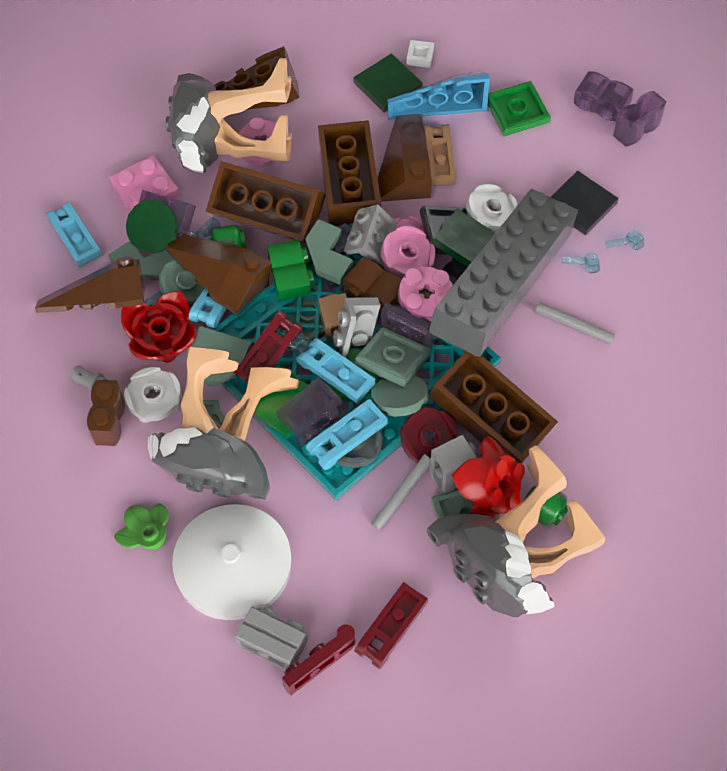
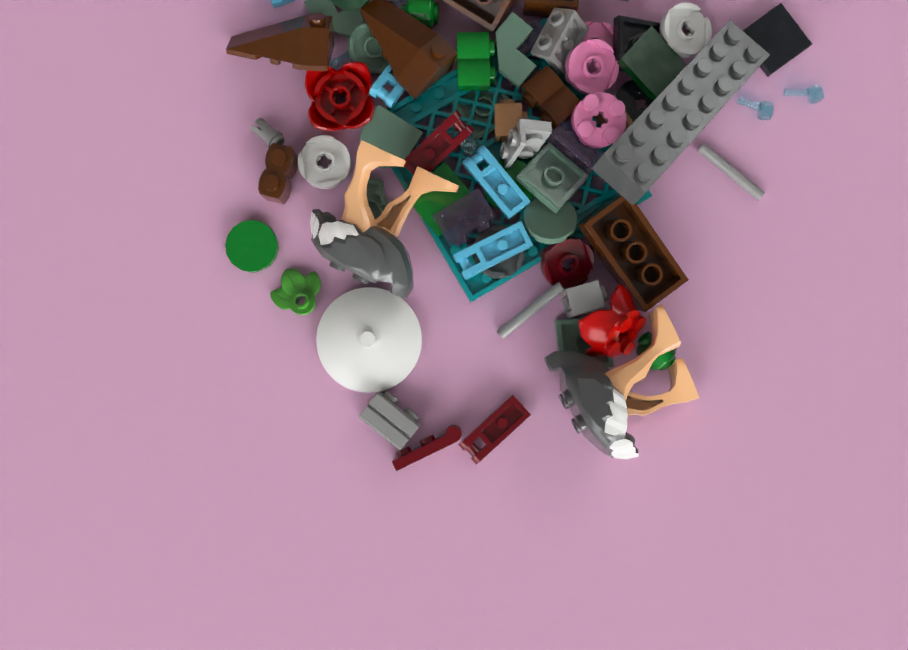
camera: 15 degrees right, 25 degrees up
(87, 491) = (252, 246): none -> green tile

